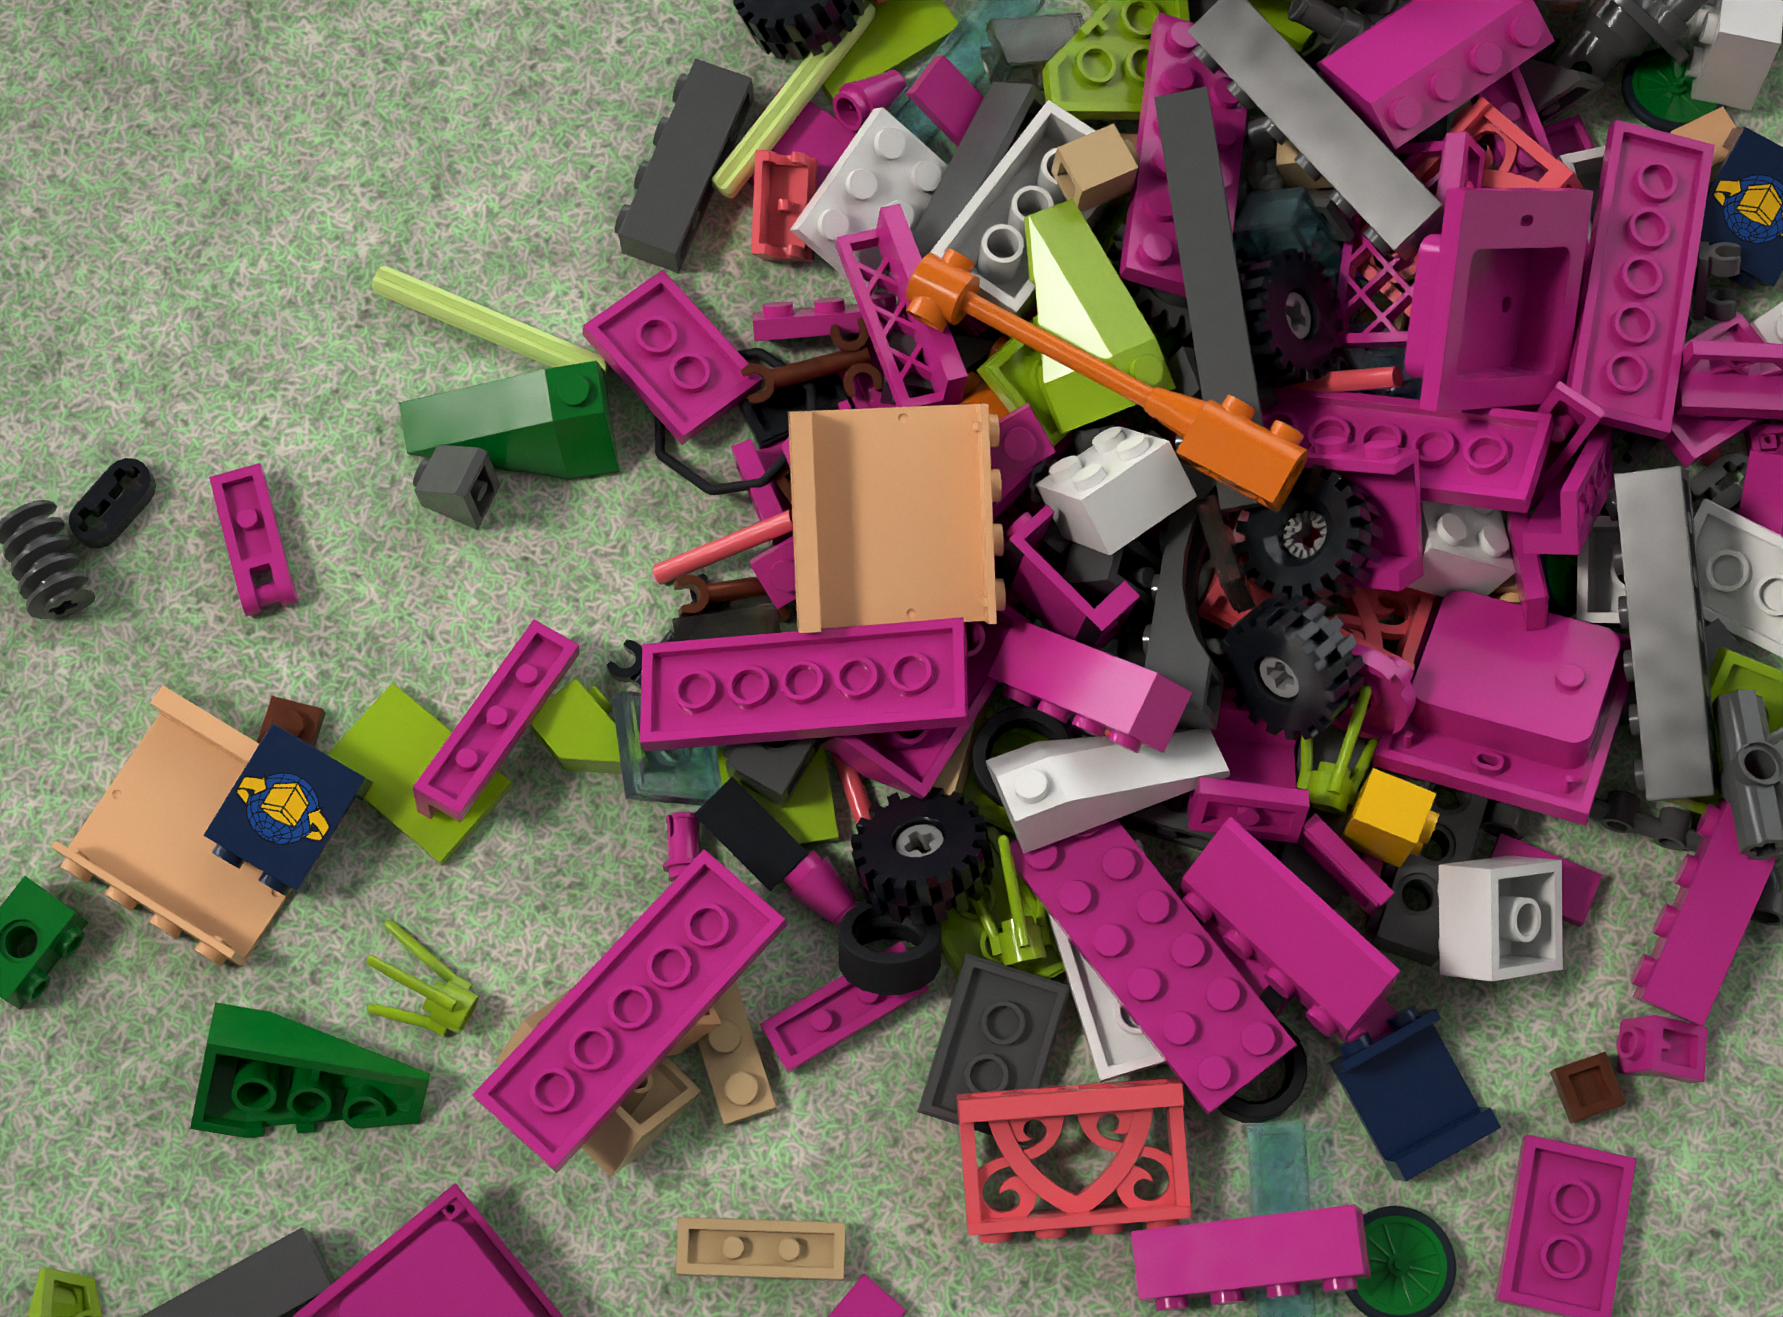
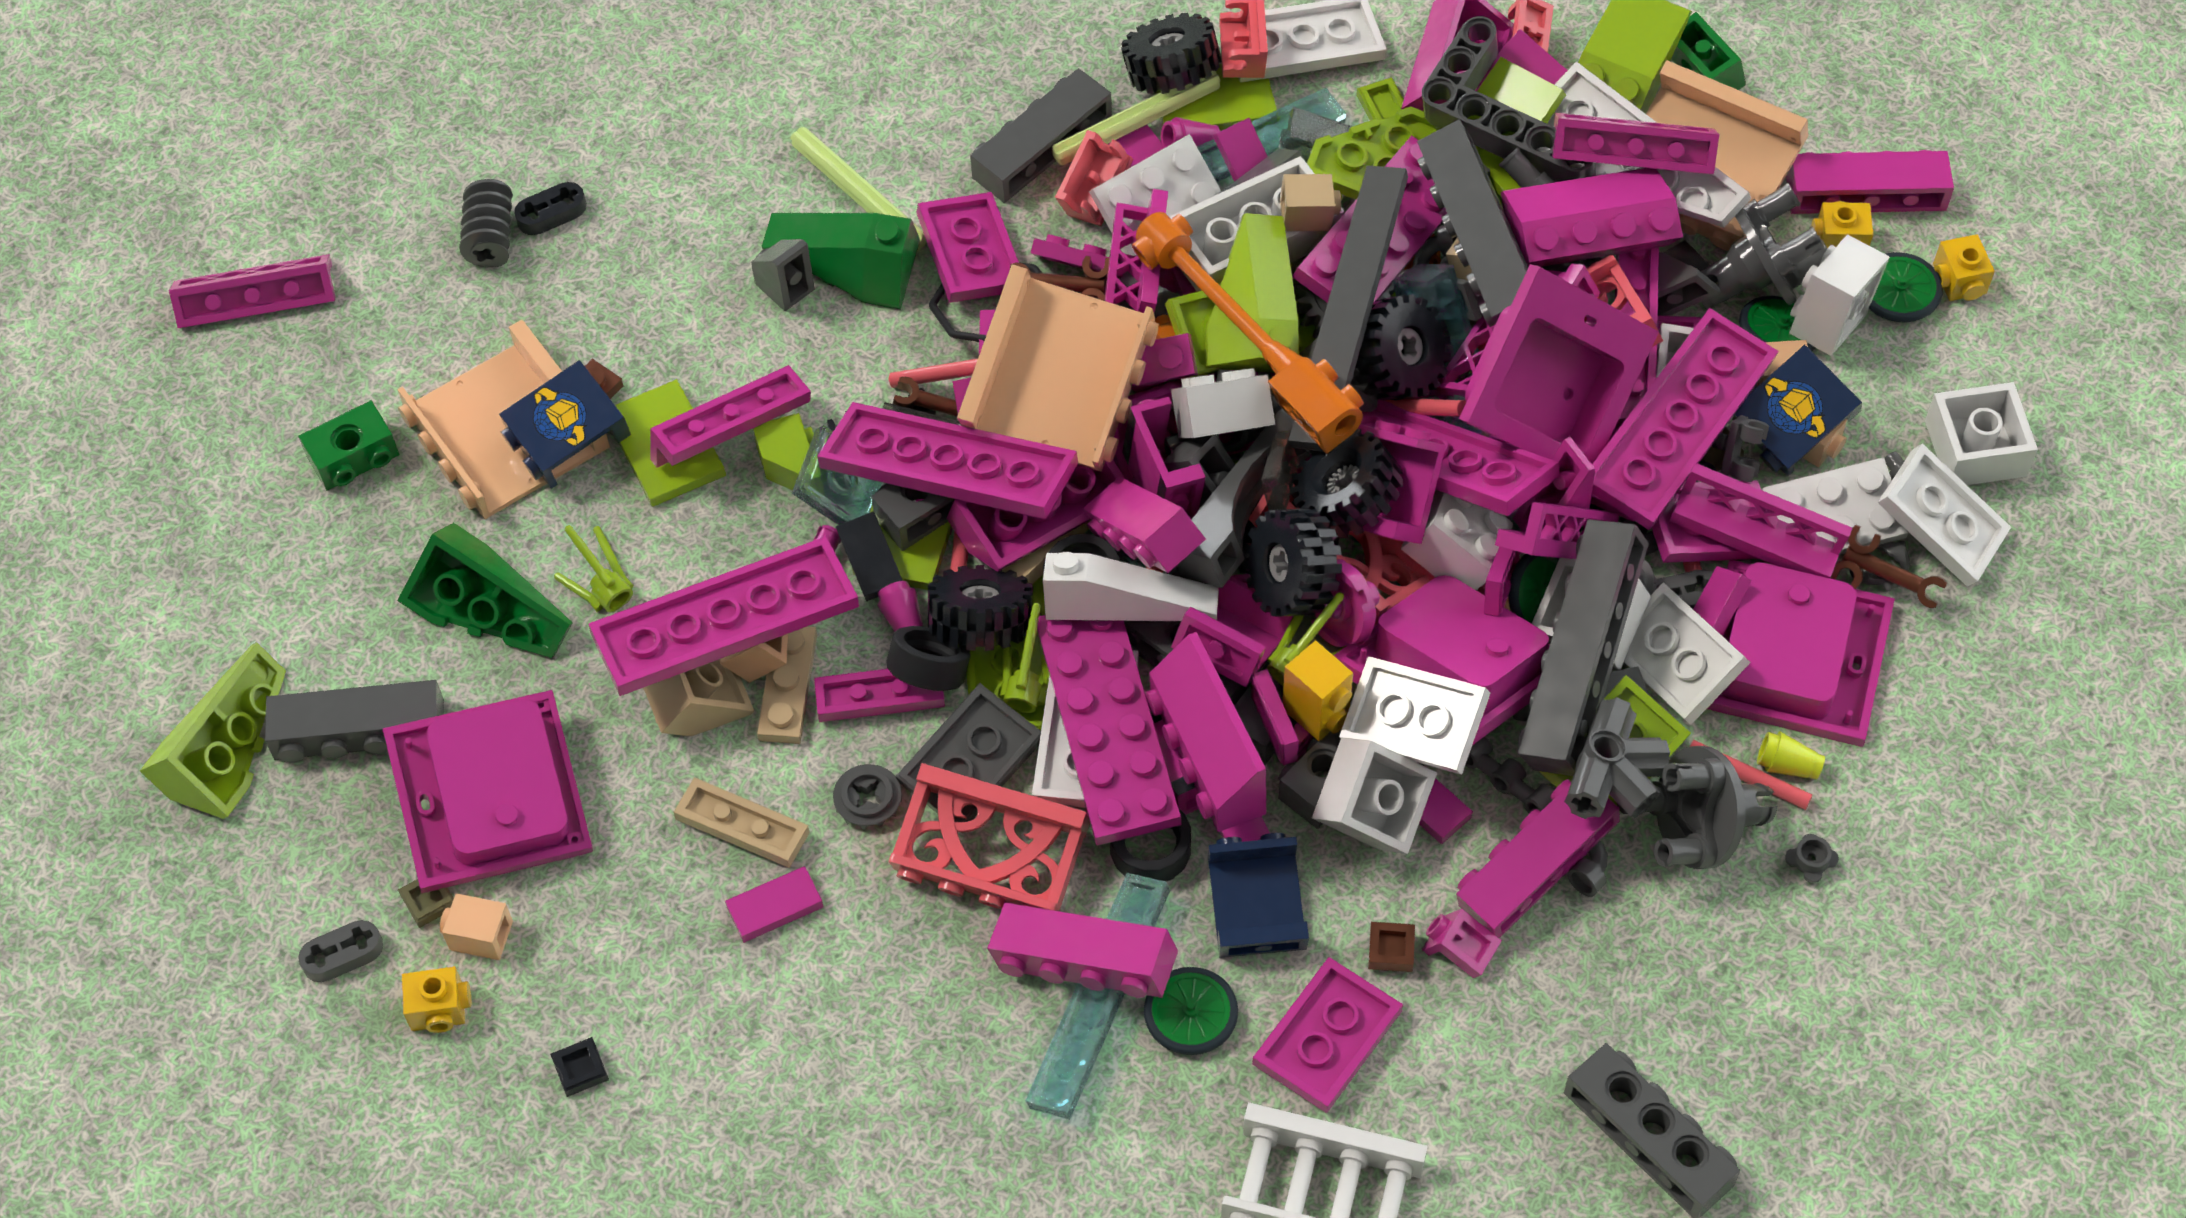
camera: 25 degrees right, 15 degrees down
(253, 538) = (630, 260): dark pink plate -> none
(877, 1128) = (865, 779): none -> dark grey gear
(1518, 807) = (1416, 714): none -> white plate

